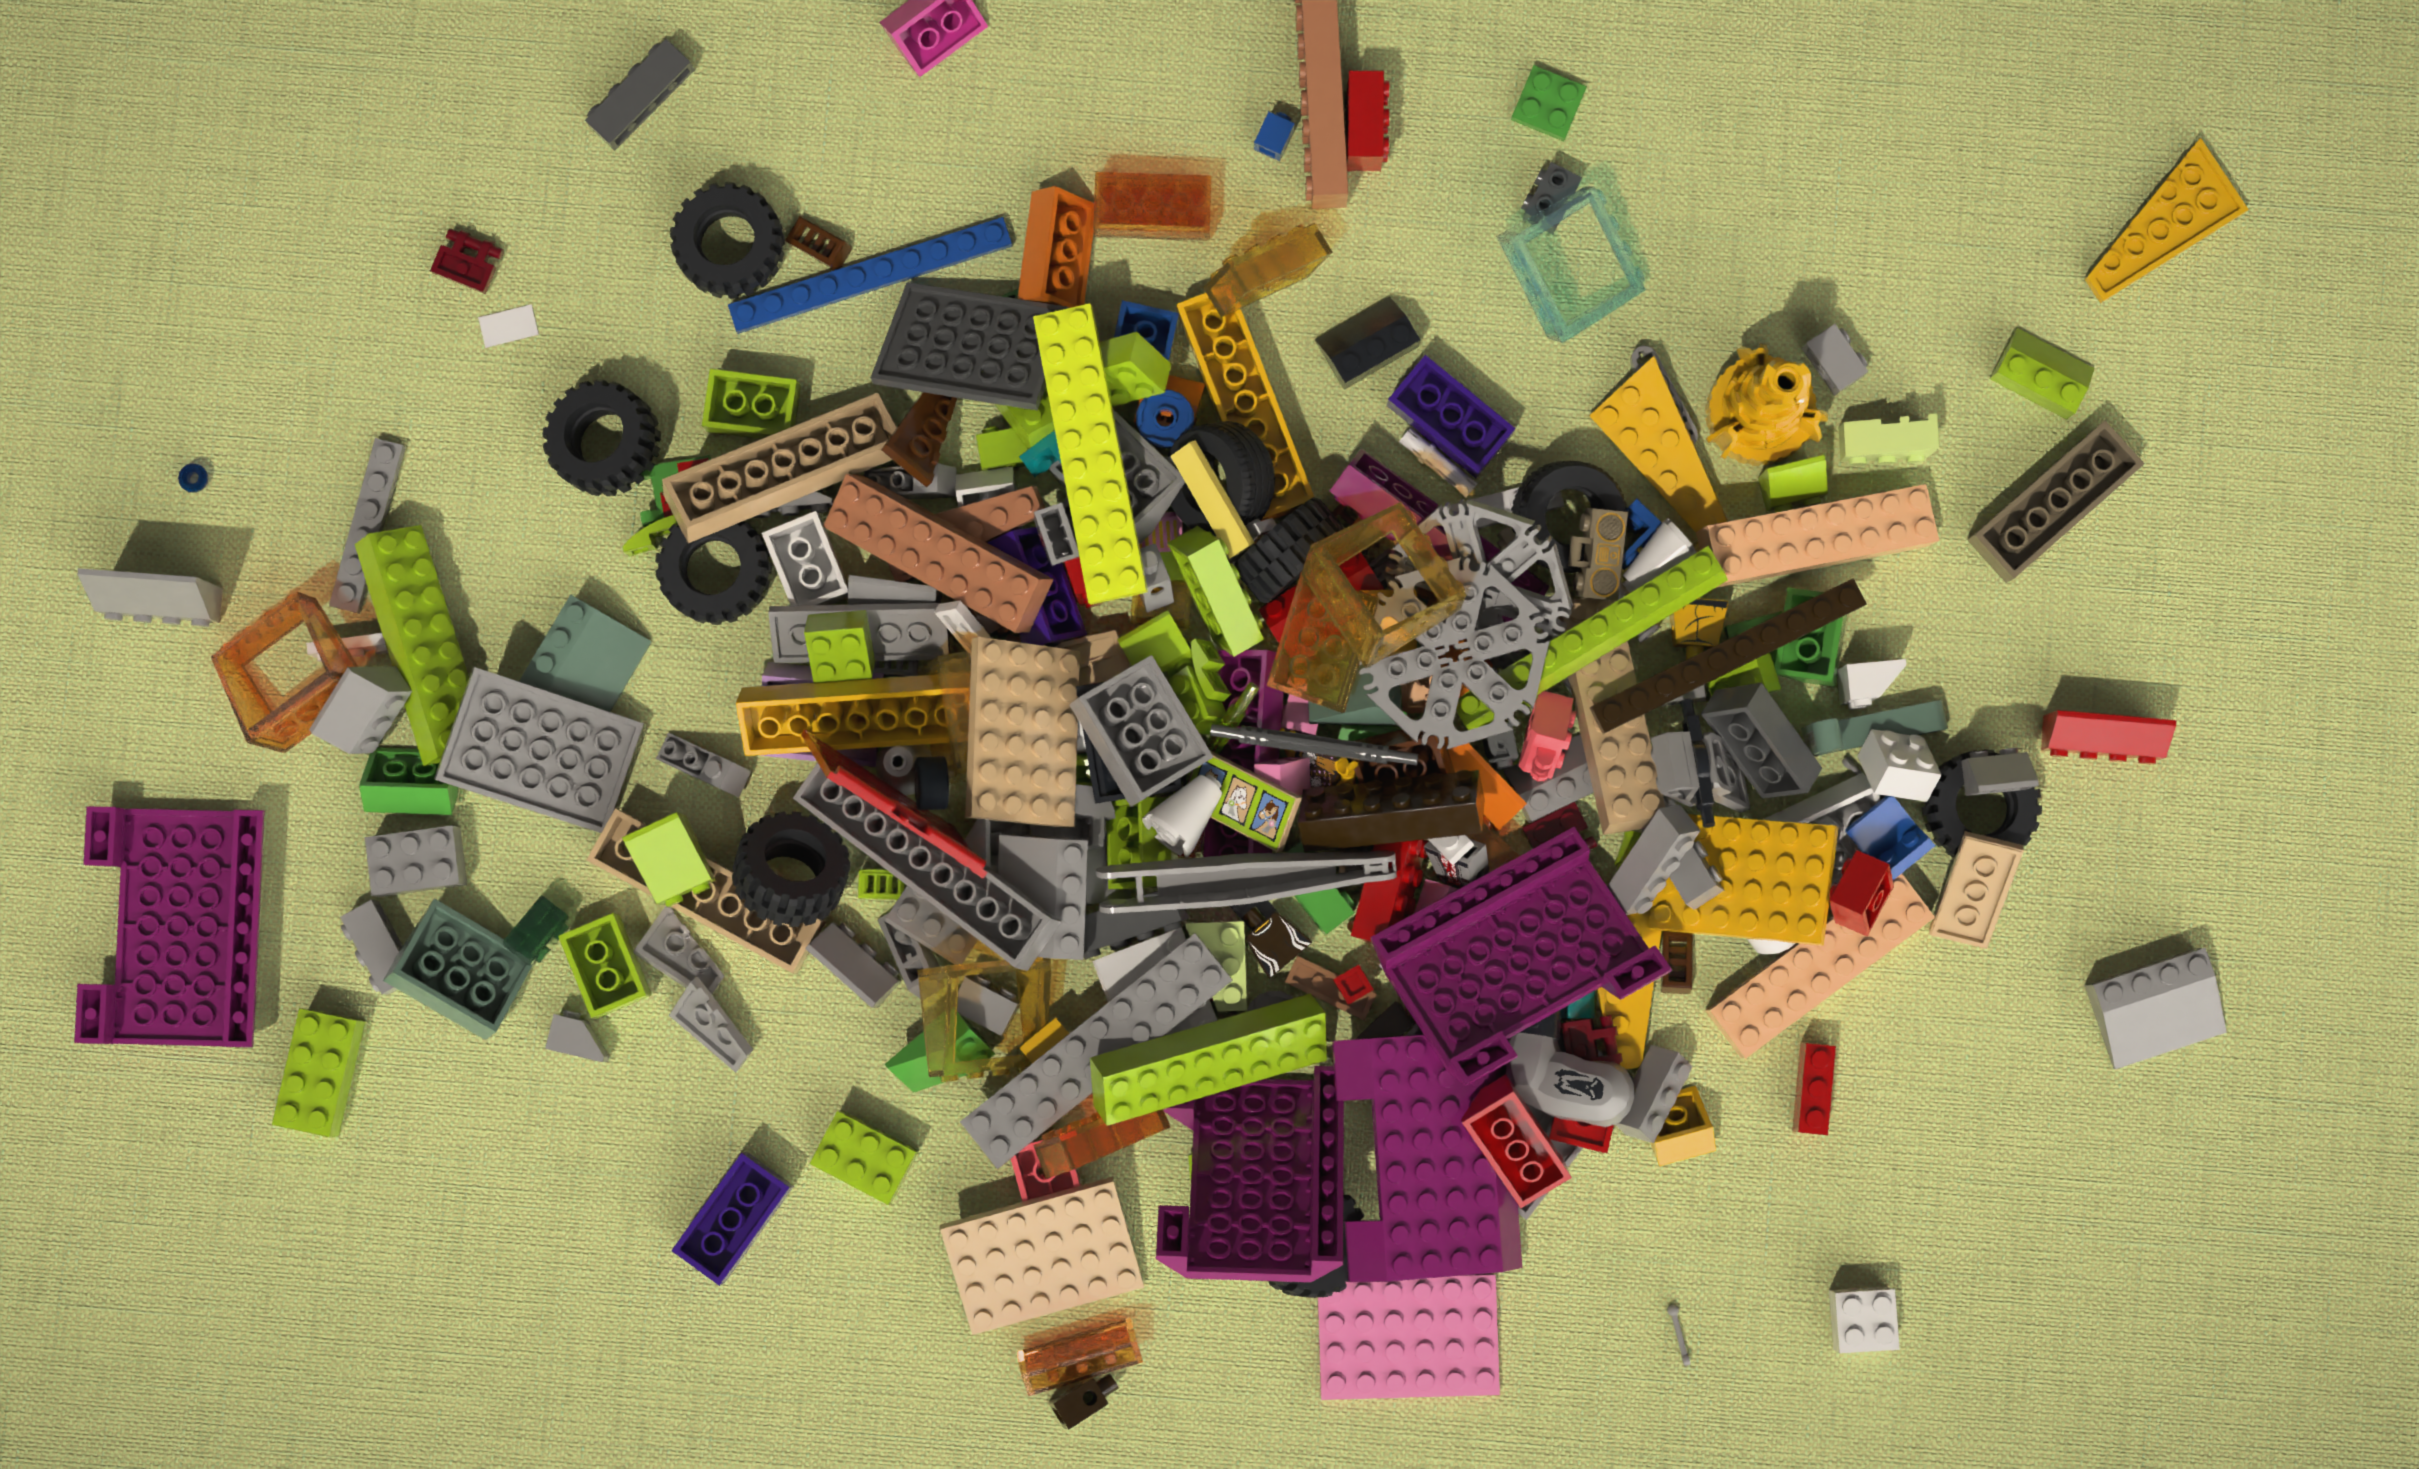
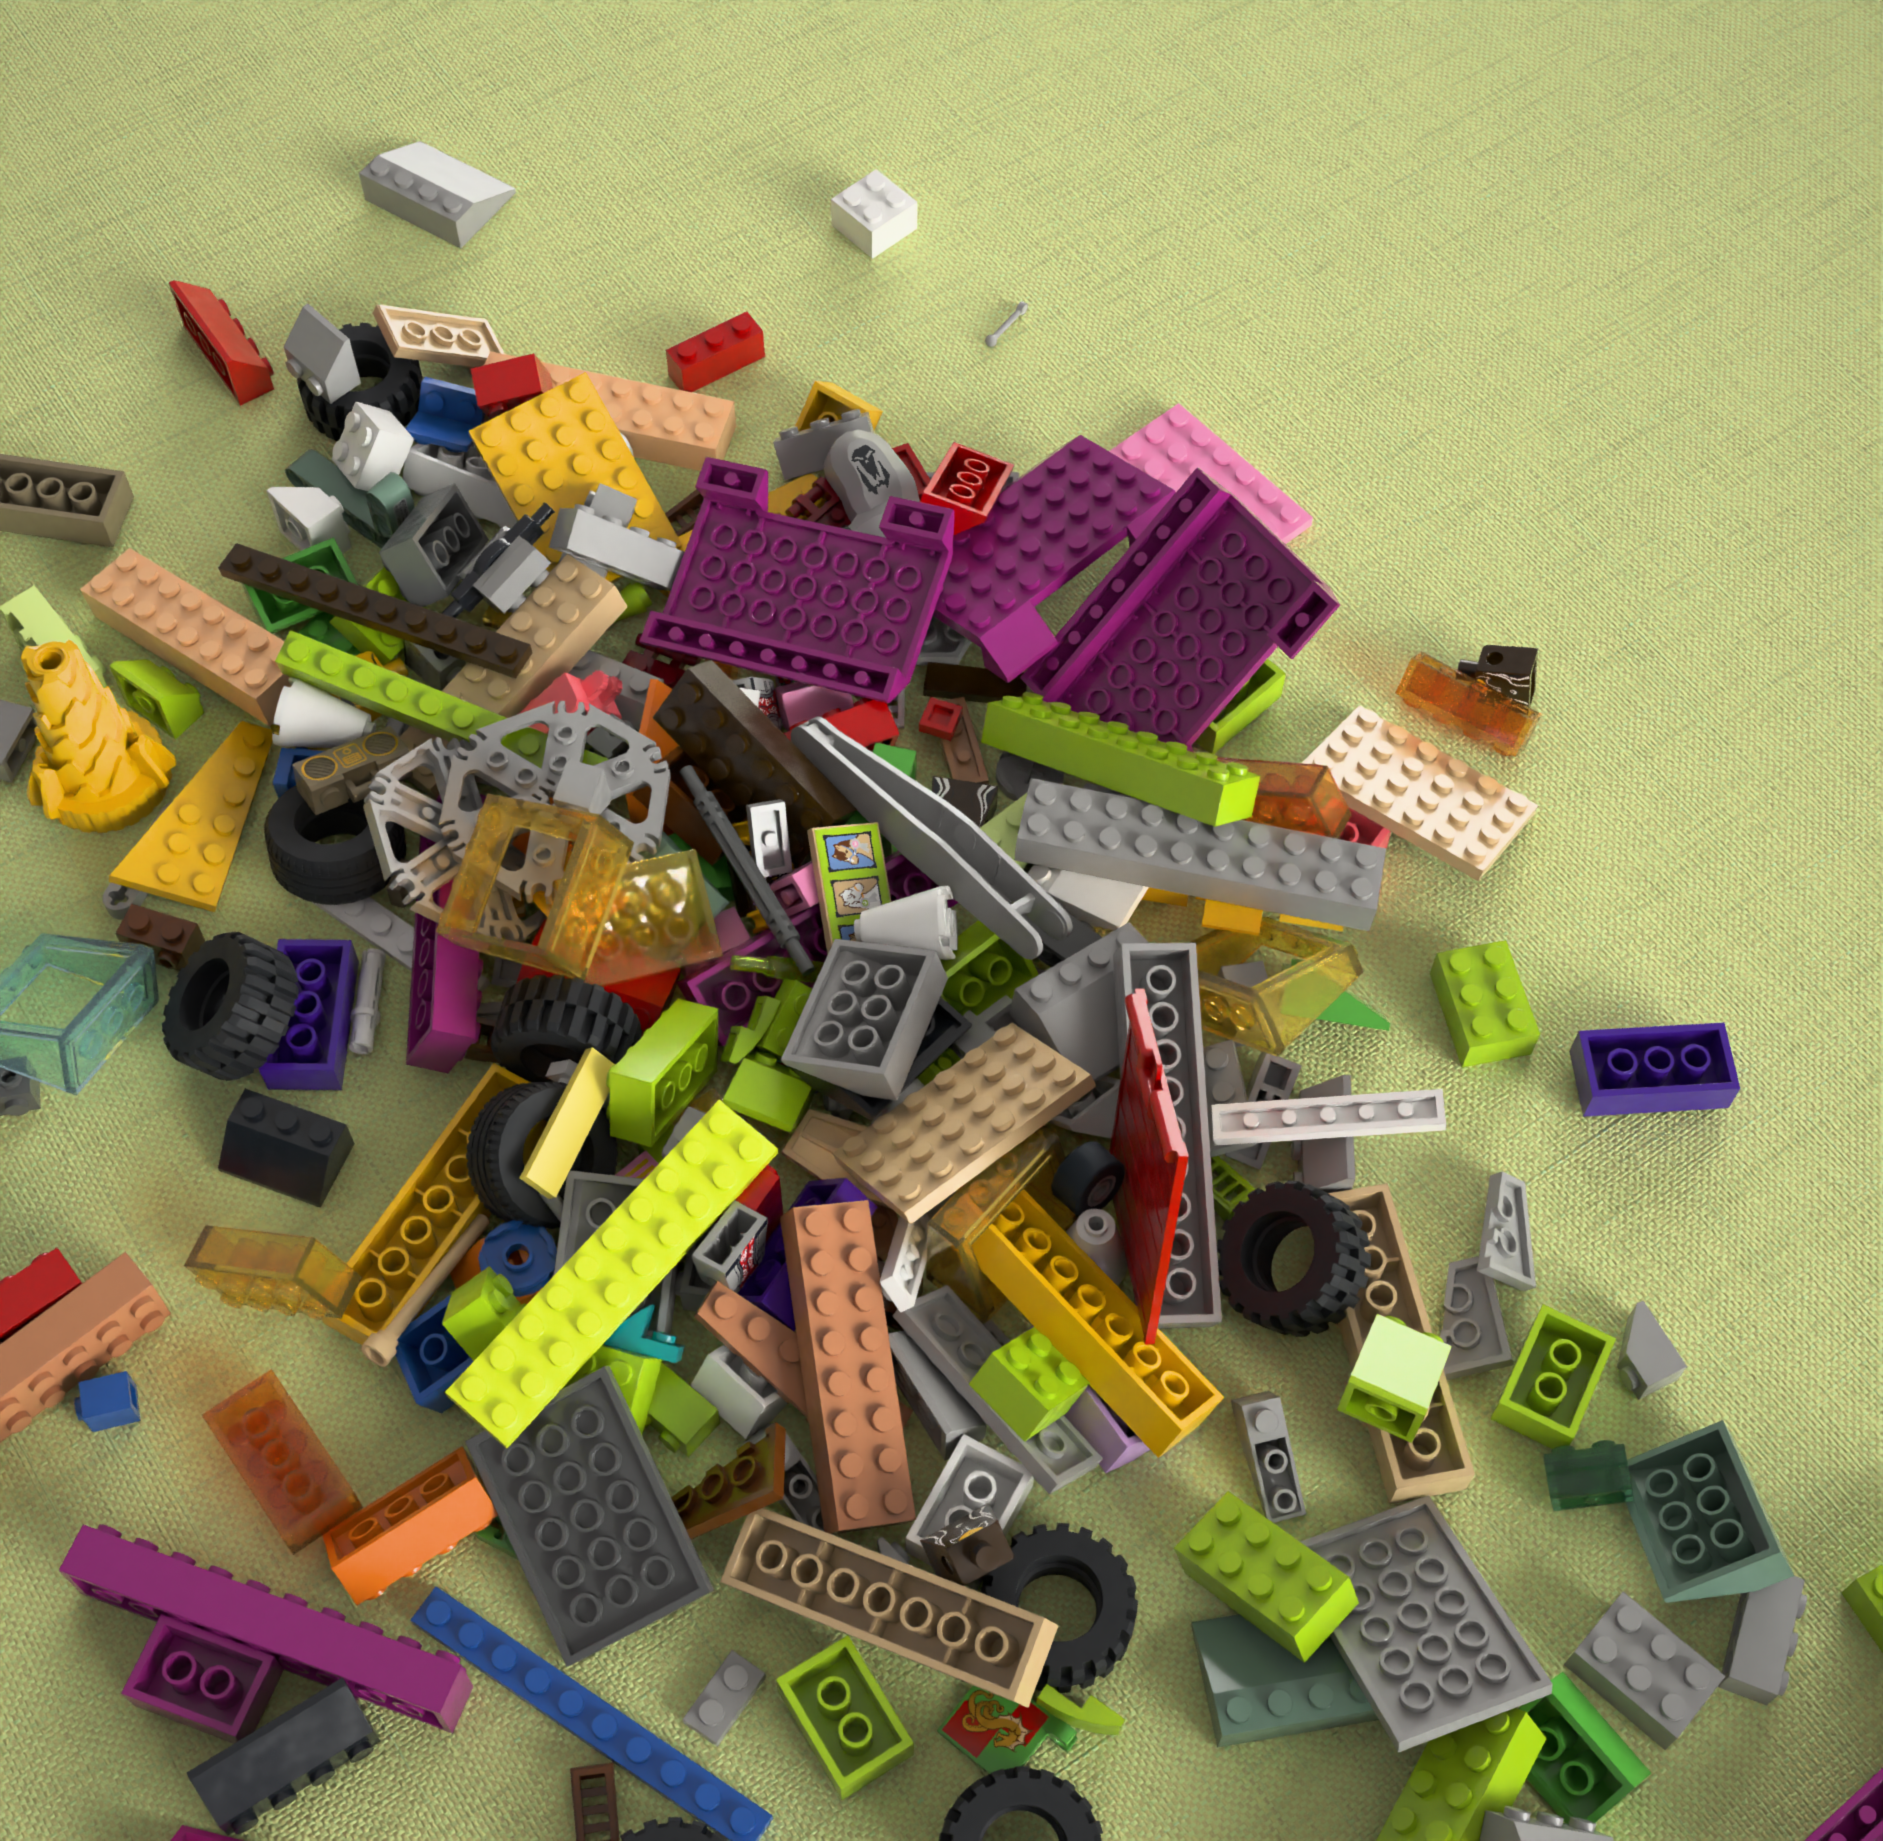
camera: 135 degrees left, 25 degrees down
(630, 691) = (1267, 1576): none -> lime brick
(770, 534) = (971, 1546): none -> dark brown torso
(821, 355) = (724, 1698): none -> light grey plate
(852, 964) = (1328, 1117): none -> white plate
(973, 98) = (284, 1758): none -> black slope
(1054, 82) = (202, 1680): none -> magenta brick
(1055, 133) = (301, 1639): none -> magenta brick
(1170, 304) = (382, 1346): none -> tan piece
(1325, 776) = (769, 837): none -> light grey plate
(1422, 656) = (582, 788): none -> light grey slope
(1480, 363) = (230, 1006): none -> black tyre
(1586, 363) = (168, 935): none -> reddish brown brick

